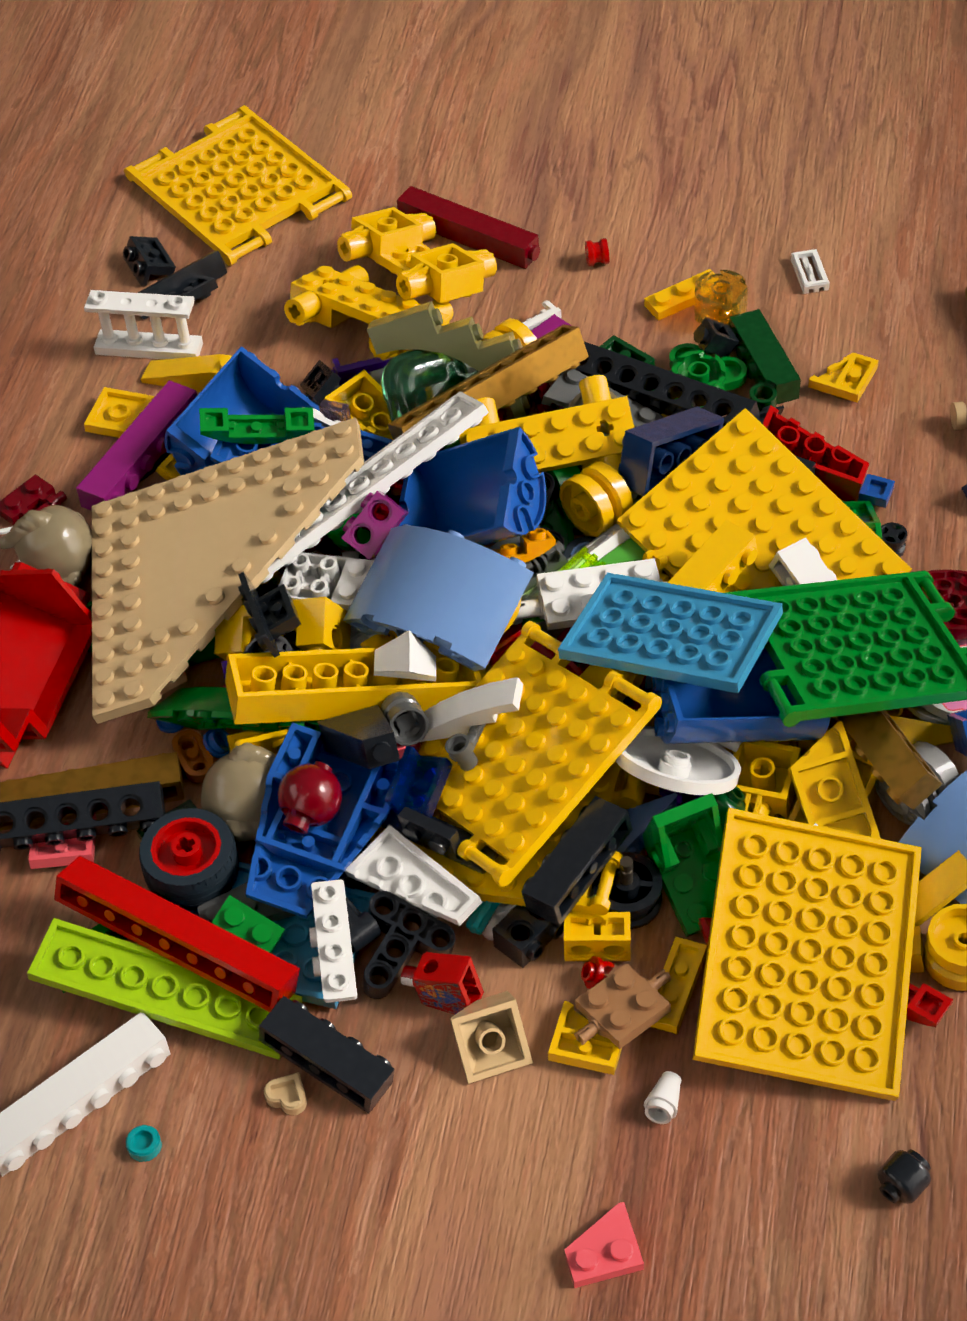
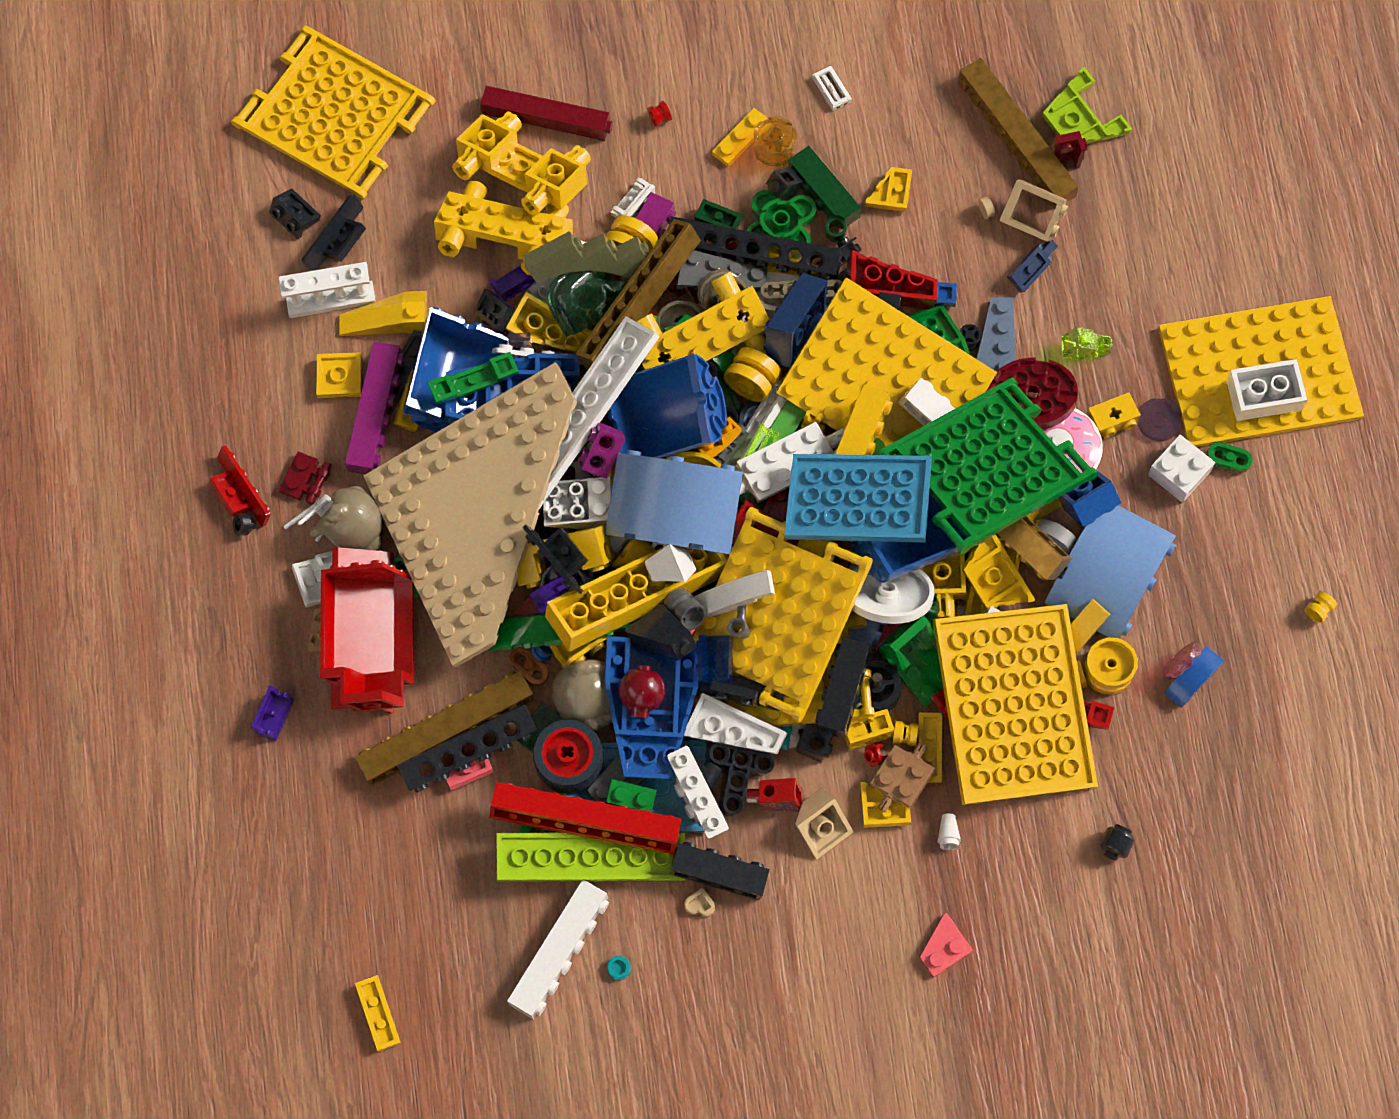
camera: 20 degrees left, 20 degrees up
(647, 956) = (910, 735): none -> yellow wheel
(934, 541) = (998, 336): none -> sand blue wing

